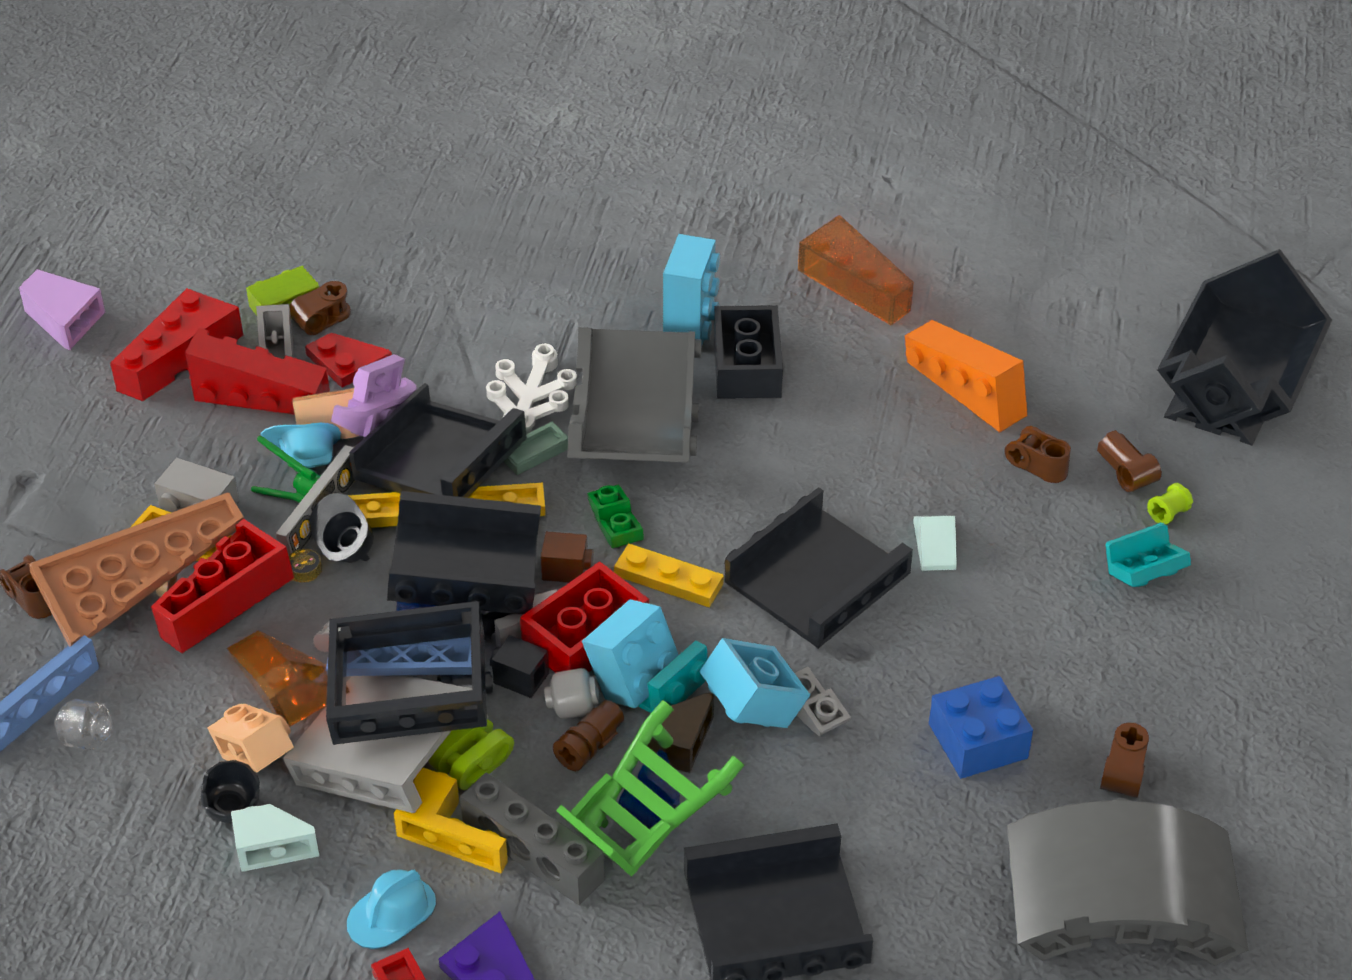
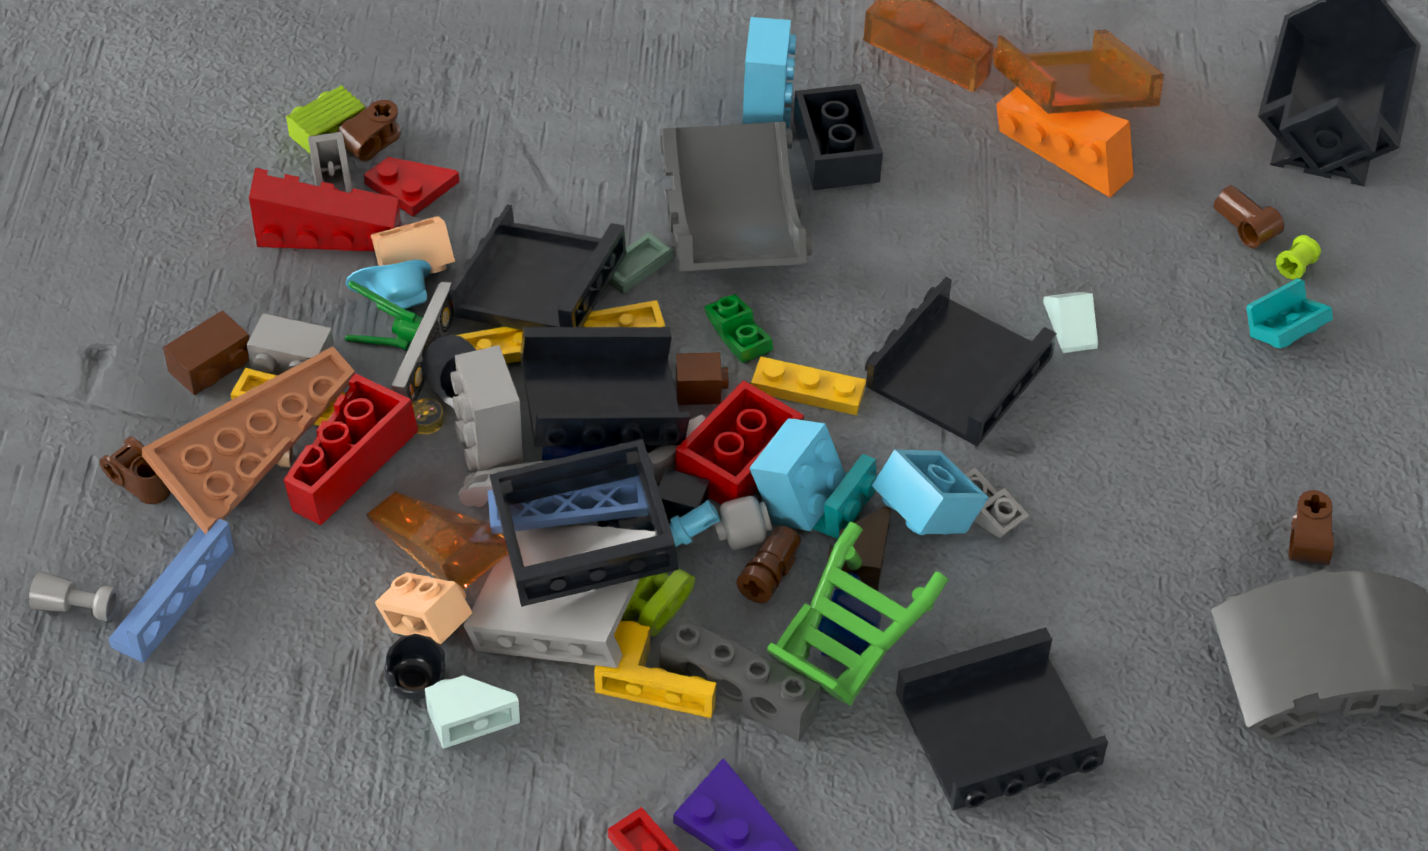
camera: 10 degrees left, 5 degrees up
(61, 306) = (84, 155): lavender slope -> none
(83, 724) = (239, 613): clear head -> none
(120, 488) = (207, 352): none -> reddish brown brick
(160, 348) = (222, 185): red wedge -> none
(351, 561) = (487, 410): none -> light grey brick
(374, 395) = (464, 225): lavender plate -> none
(391, 909) = (609, 770): medium azure piece -> none
(514, 692) = (693, 523): none -> medium azure pin
(543, 360) = (621, 166): white plant -> none
(980, 727) = (1161, 511): blue brick -> none
(990, 321) = (1082, 79): none -> clear orange panel
(1042, 454) = (1161, 217): reddish brown piece -> none

